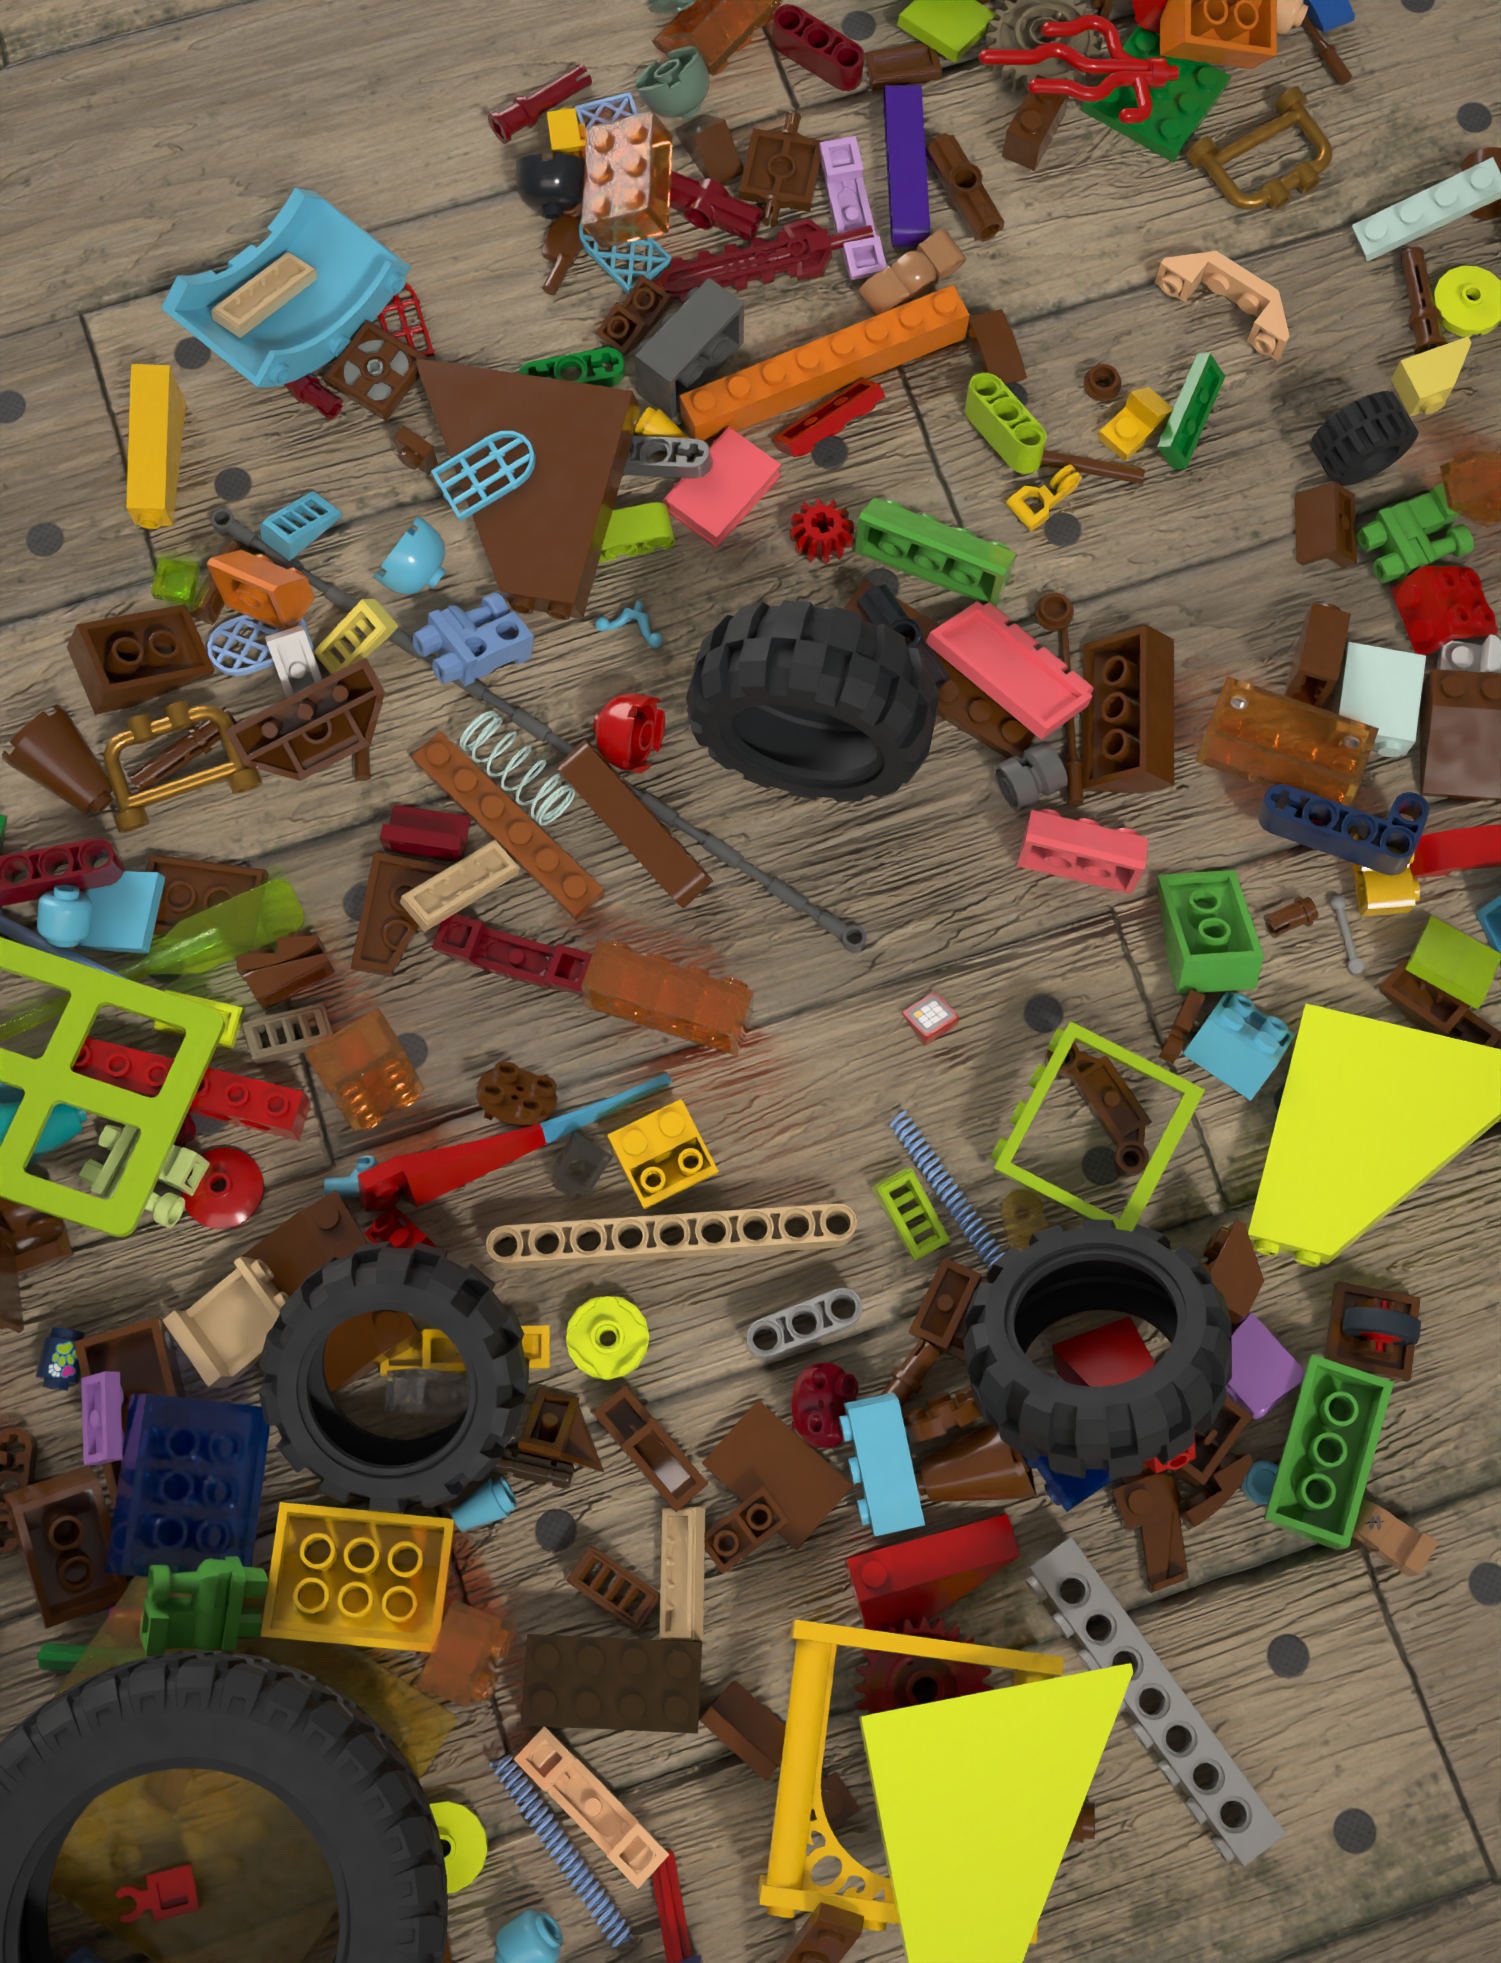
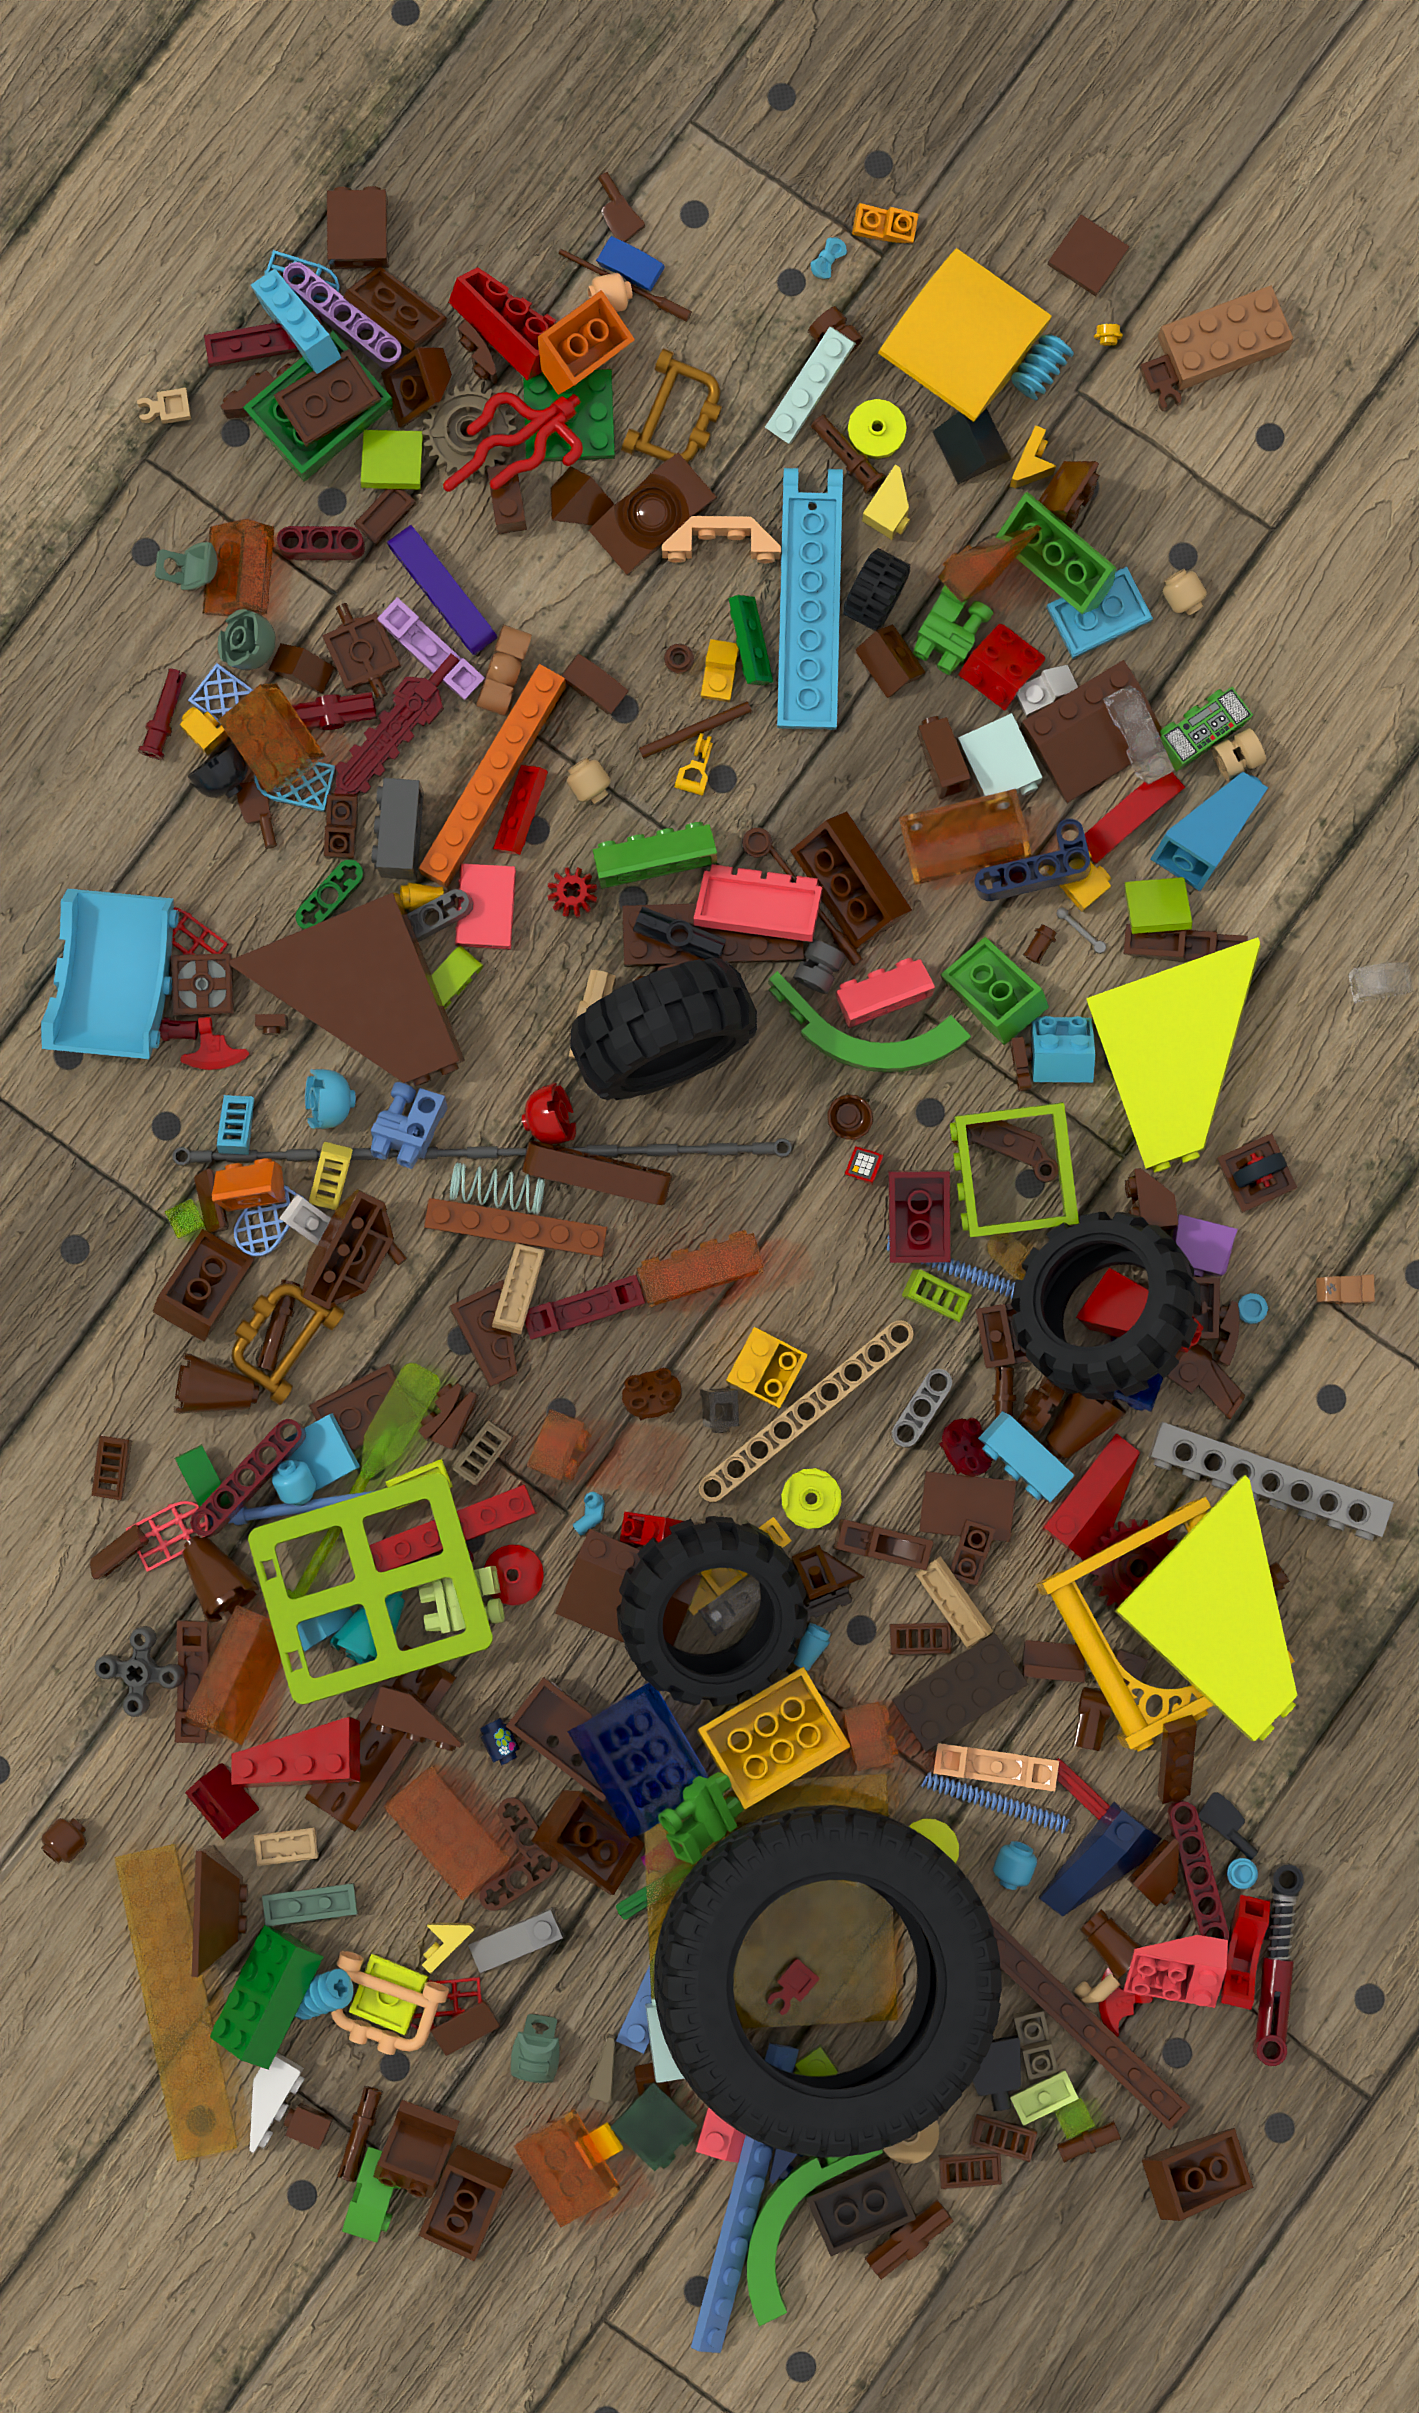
camera: 30 degrees left, 10 degrees up
(102, 1418) = (560, 1756): medium lavender plate -> none
(154, 445) = (104, 1142): yellow slope -> none
(230, 1323) = (585, 1648): tan panel -> none
(264, 294) = (93, 986): tan plate -> none
(339, 441) = (213, 1050): none -> red piece
(426, 833) = (469, 1268): dark red panel -> none
(439, 1171) = (642, 1475): red plate -> none
(470, 471) = (324, 1016): medium azure window -> none
(654, 639) = (478, 1053): medium azure piece -> none
(743, 1833) = (1093, 1715): none -> reddish brown piece
(920, 434) = (588, 780): none -> tan head
(951, 953) = (850, 1117): none -> reddish brown hair
(952, 1108) = (919, 1216): none -> dark red slope
(972, 203) = (476, 570): reddish brown piece -> none
(1005, 423) = (631, 725): lime beam -> none
(1035, 918) = (867, 1055): none -> bright green arch
(1111, 173) = (578, 499): none -> reddish brown slope
(1153, 226) = (652, 513): none -> reddish brown slope
(1278, 419) = (809, 604): none -> medium azure hinge
(1328, 1452) = (1277, 1266): bright green slope -> none

